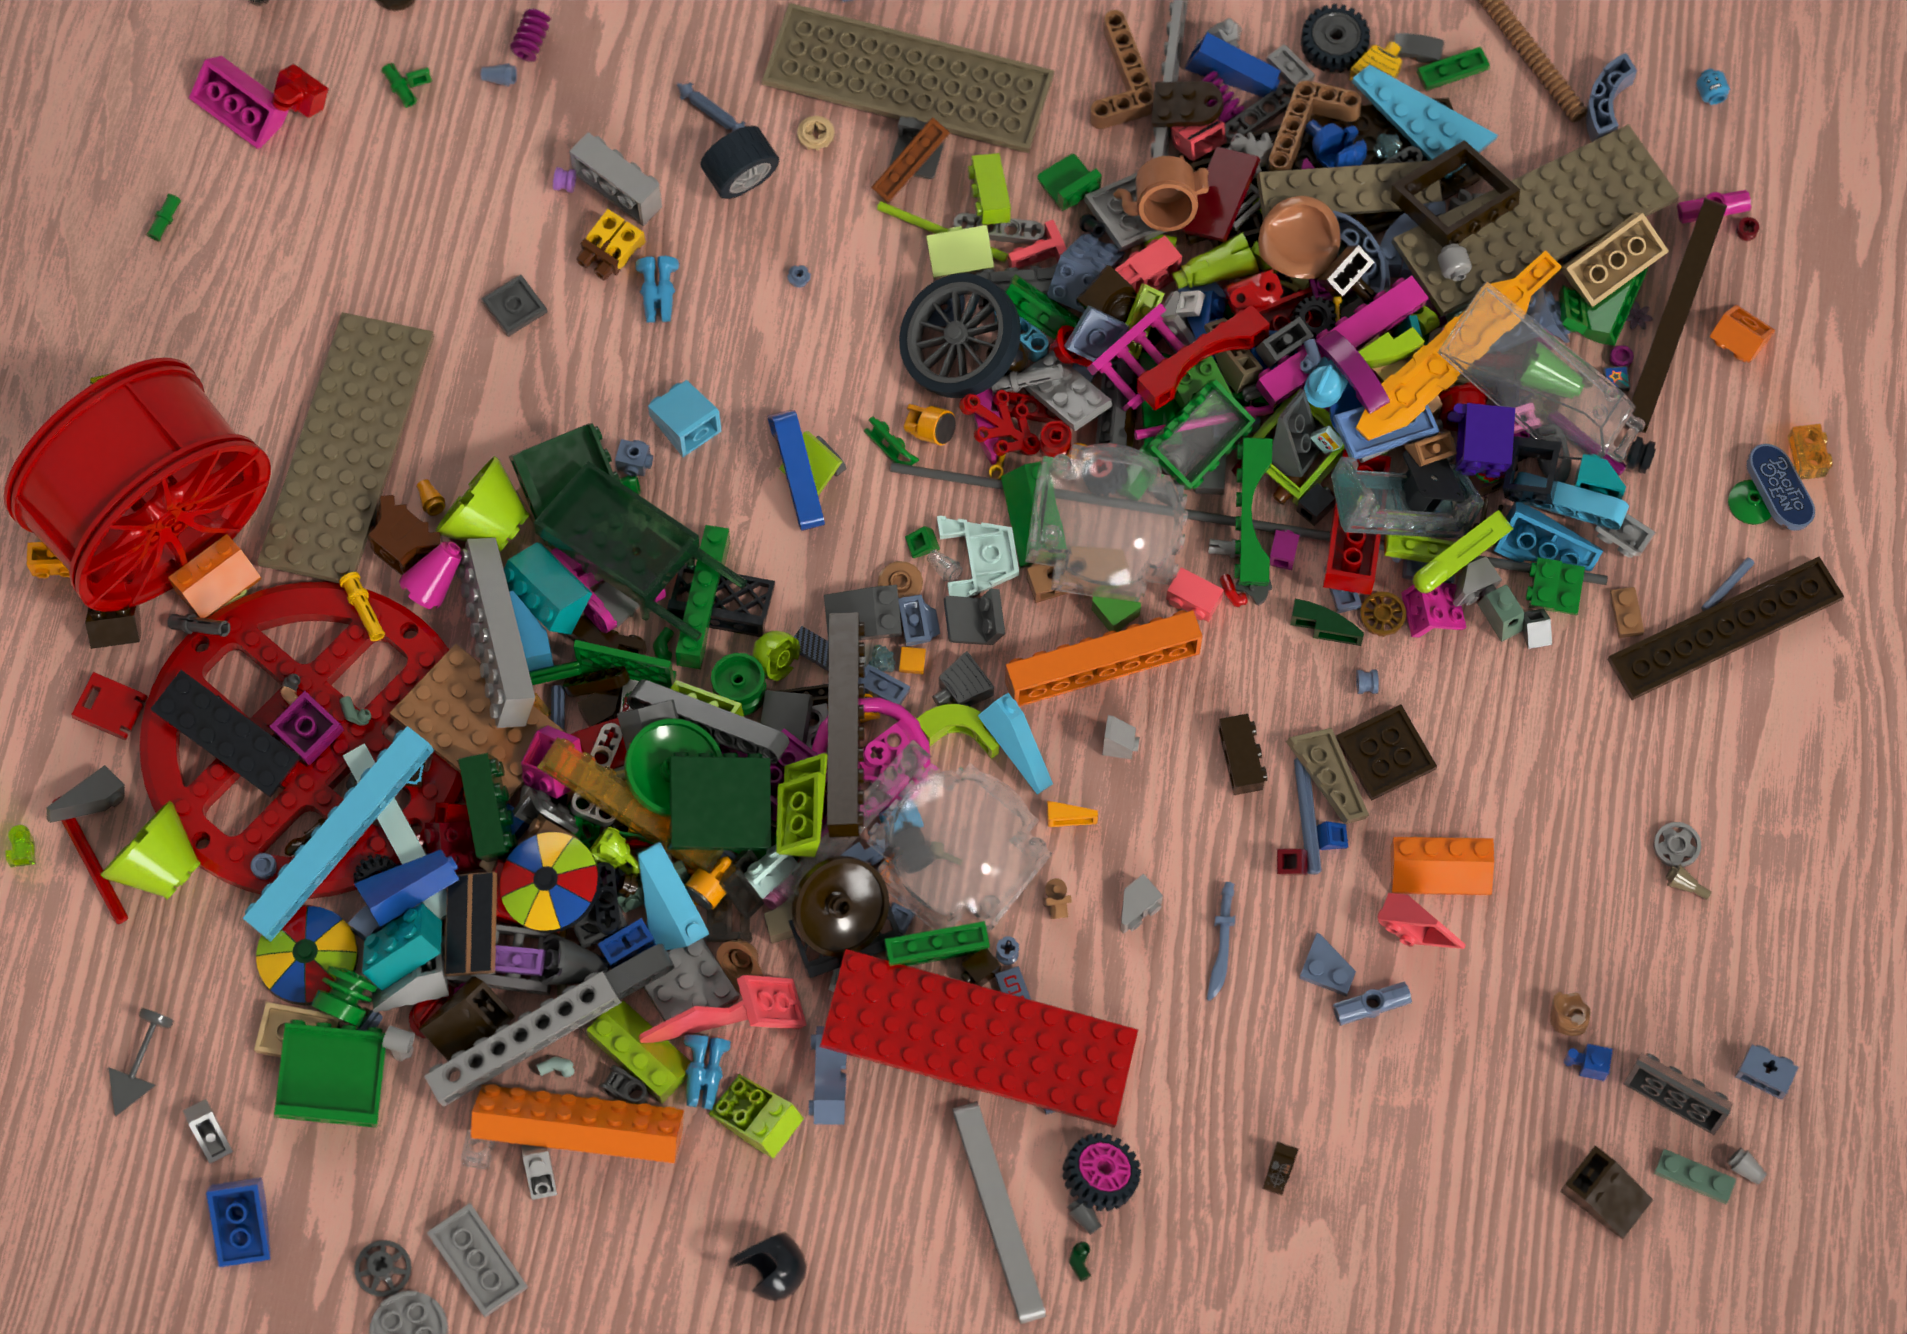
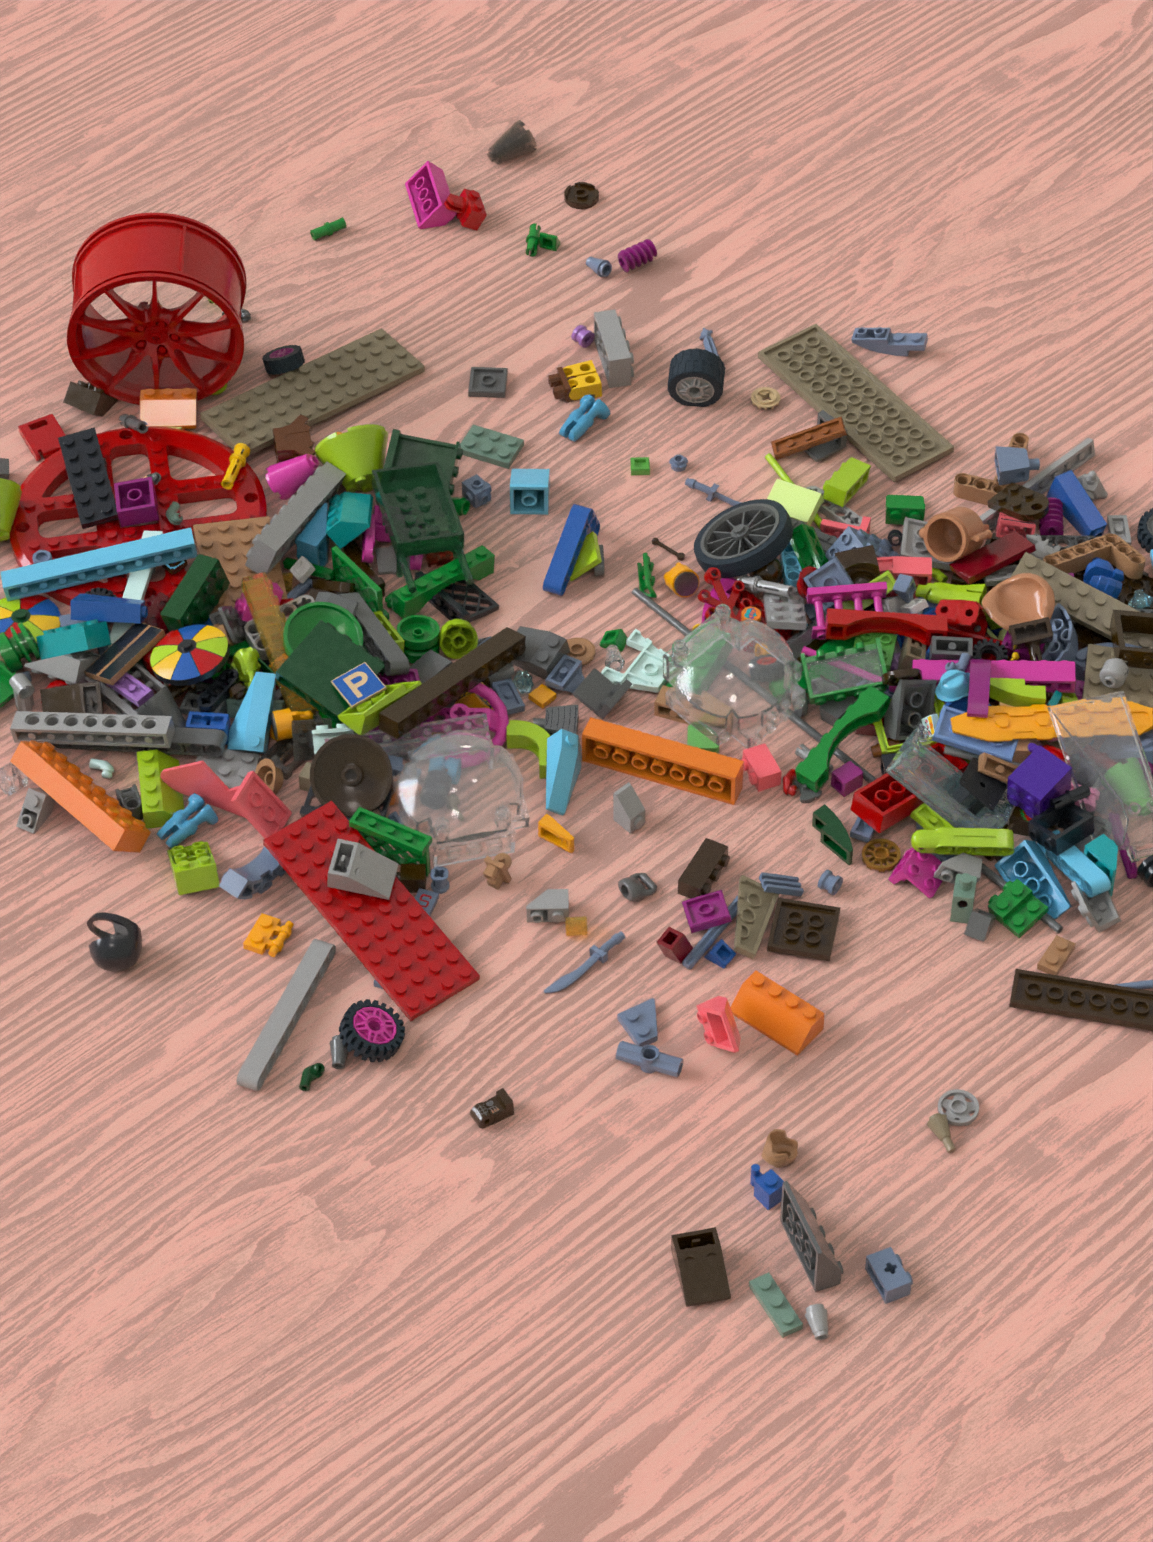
camera: 40 degrees right, 20 degrees down
(280, 428) = (283, 359): none -> black wheel
(547, 684) = (302, 569): none -> white plate
(590, 387) = (491, 446): none -> sand green plate
(763, 306) = (640, 466): none -> bright green tile
(769, 802) = (358, 685): none -> blue piece
(867, 290) = (711, 491): none -> sand blue sword
(890, 1137) = (263, 932): none -> light orange plate
(898, 391) = (680, 556): none -> dark brown hinge
(950, 1010) = (361, 870): none -> light grey slope
(1049, 427) = (751, 613): none -> orange tile
(1141, 60) = (1013, 465): none -> sand blue torso
(1170, 290) = (905, 587): none -> sand blue slope
(1179, 906) = (576, 926): none -> clear yellow beam
(1193, 823) = (633, 889): none -> dark grey piece
(1273, 409) = (892, 678): none -> dark brown tile
(1284, 799) = (706, 911): none -> magenta tile
(1335, 708) = (781, 884): none -> sand blue tile
(1525, 435) = (1070, 797): none -> black axle

